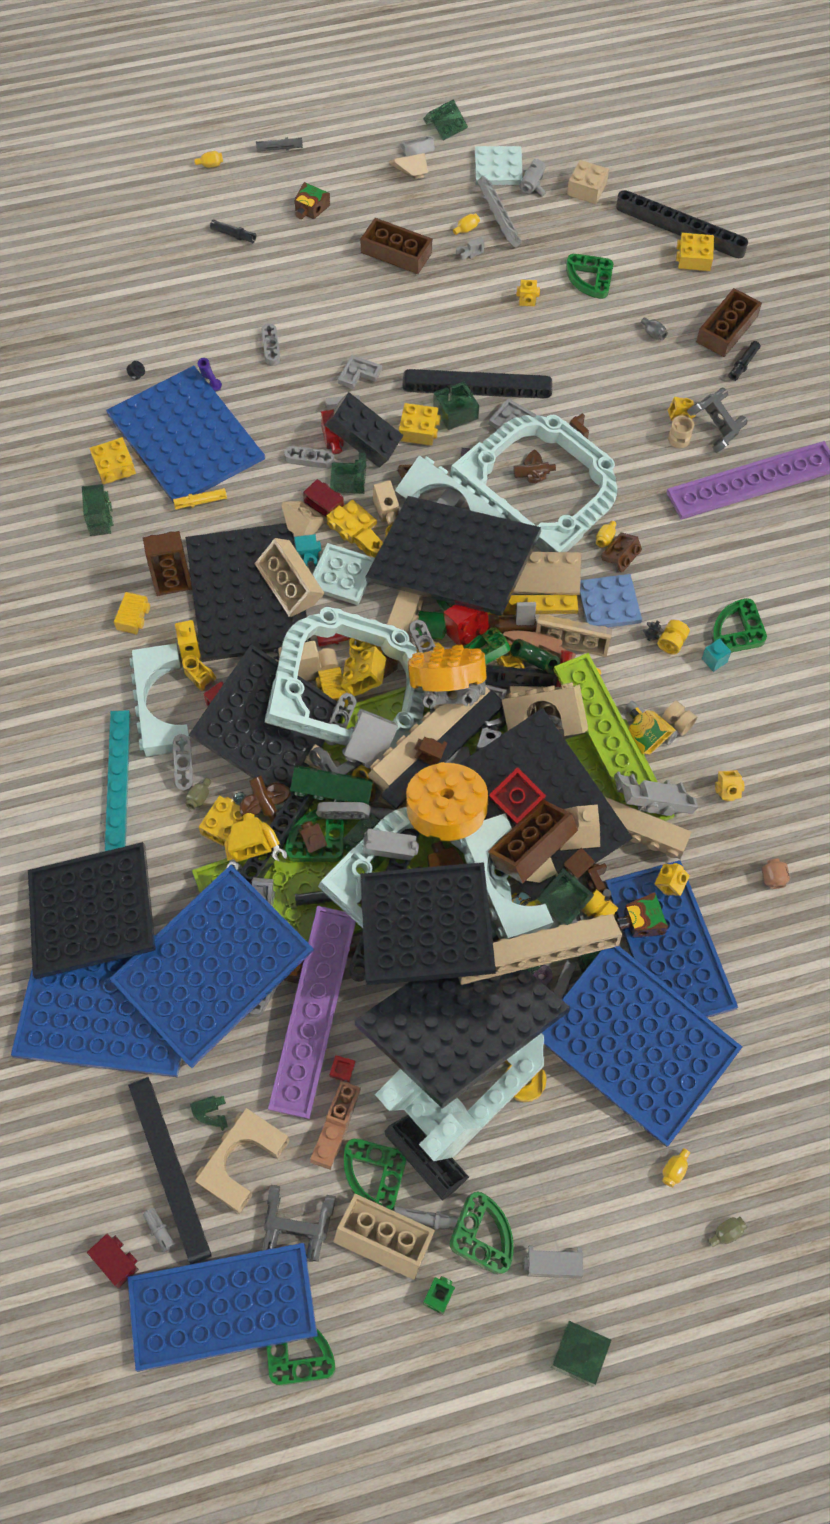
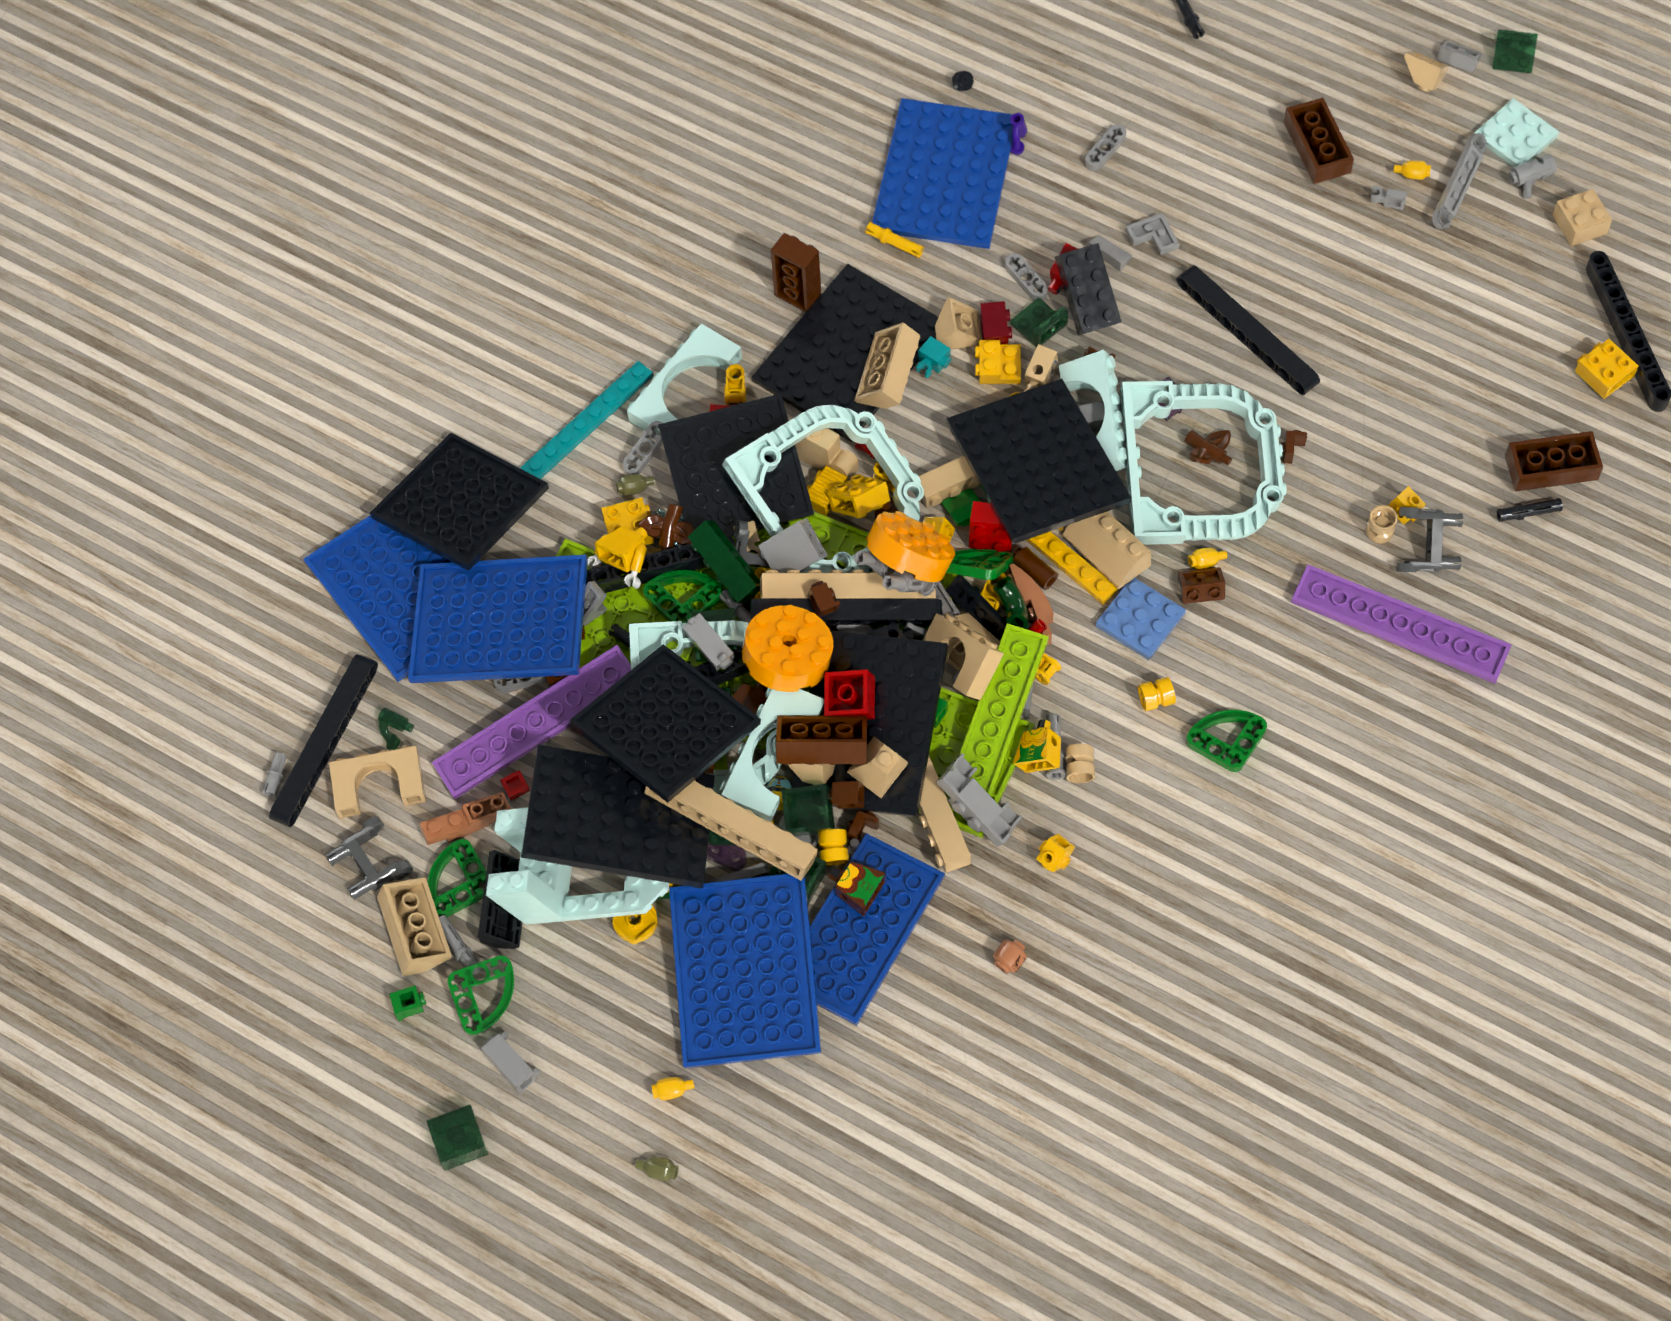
camera: 50 degrees right, 0 degrees up
(97, 509) = (797, 181): clear green piece -> none
(112, 460) = (856, 148): yellow brick -> none
(113, 1260) = (224, 765): dark red piece -> none
(131, 613) = (737, 293): yellow brick -> none
(187, 637) = (753, 351): yellow torso -> none
(221, 1307) = (259, 865): blue plate -> none
(283, 1363) = (262, 942): green beam -> none
(311, 201) = (1289, 37): reddish brown torso -> none
(312, 836) = (673, 590): reddish brown bracket -> none
(343, 573) = (937, 398): light aqua plate -> none
(343, 810) = (715, 590): light grey beam -> none
(346, 714) = (809, 506): light grey beam -> none
(368, 542) = (991, 390): yellow piece -> none
(419, 424) = (1149, 323): yellow brick -> none
(425, 636) = (933, 507): light grey beam -> none
(461, 407) = (1200, 339): clear green piece -> none
(507, 412) = (1246, 379): light grey plate -> none
(525, 613) = (1046, 559): light grey slope -> none
(527, 292) = (1393, 280): yellow brick -> none
(576, 635) = (1073, 618): tan slope -> none
(601, 271) = (1492, 315): green beam -> none
(653, 630) = (1146, 673): black wheel -> none
(655, 328) = (1477, 410): dark grey plant -> none
(672, 879) = (914, 877): yellow brick -> none
(716, 655) = (1175, 741): teal brick -> none

